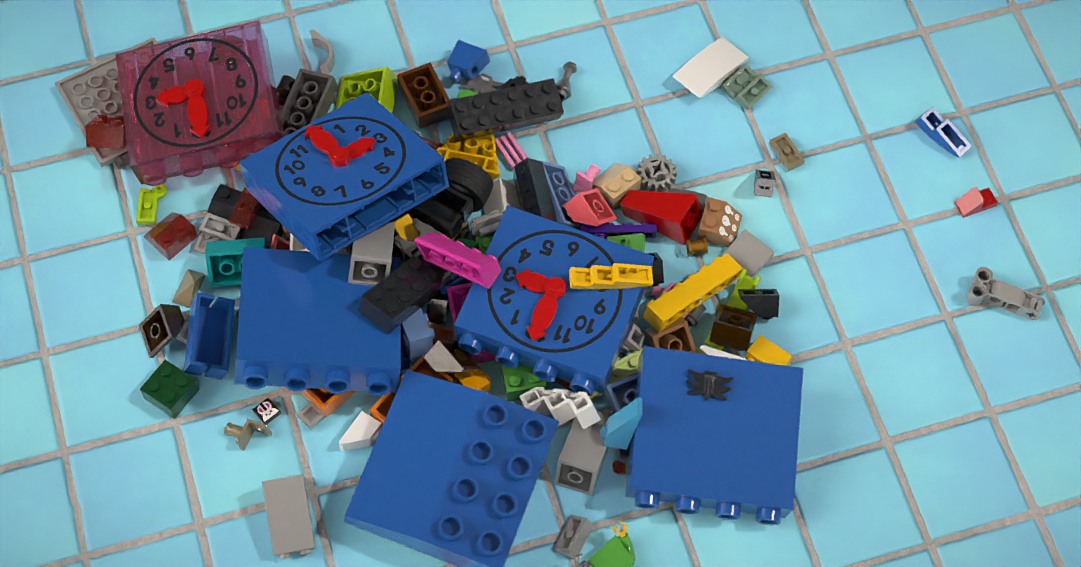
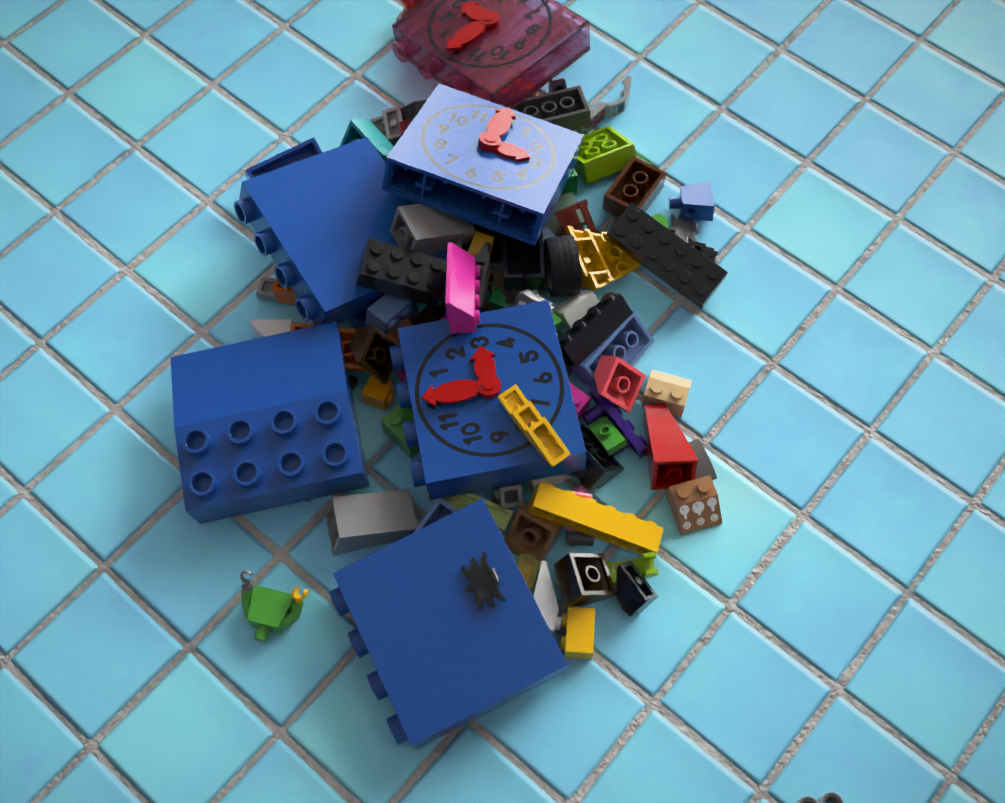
camera: 60 degrees right, 0 degrees up
(148, 204) = (385, 69): lime hinge -> none
(161, 327) = (279, 140): dark brown slope -> none
(169, 389) = (225, 176): dark green brick -> none
(171, 235) = (367, 100): clear red slope -> none
(188, 288) = (330, 140): dark tan slope -> none
(245, 433) = (222, 251): dark tan bracket -> none
(266, 411) = (252, 257): tile -> none
(289, 516) = (163, 324): light grey slope -> none
(504, 139) = (642, 277): bright pink tile -> none
(561, 405) = (391, 471): white brick -> none
(563, 84) = (732, 292): flat silver piece -> none
(573, 536) = (280, 562): light grey slope -> none
(585, 181) = (649, 364): bright pink bracket -> none
(622, 425) = (395, 528): dark azure slope -> none
(656, 178) = (708, 417): light grey gear -> none
(696, 246) = (654, 499): pearl gold bush -> none
(711, 67) = (861, 401): white slope -> none
(746, 87) = (868, 445): sand green slope -> none
(749, 253) = (679, 551): light grey slope -> none
(764, 183) = (773, 520): slope -> none
(786, 152) = (824, 523): dark tan plate -> none
(943, 132) = (975, 667): blue slope -> none
(975, 201) = (918, 747): slope -> none

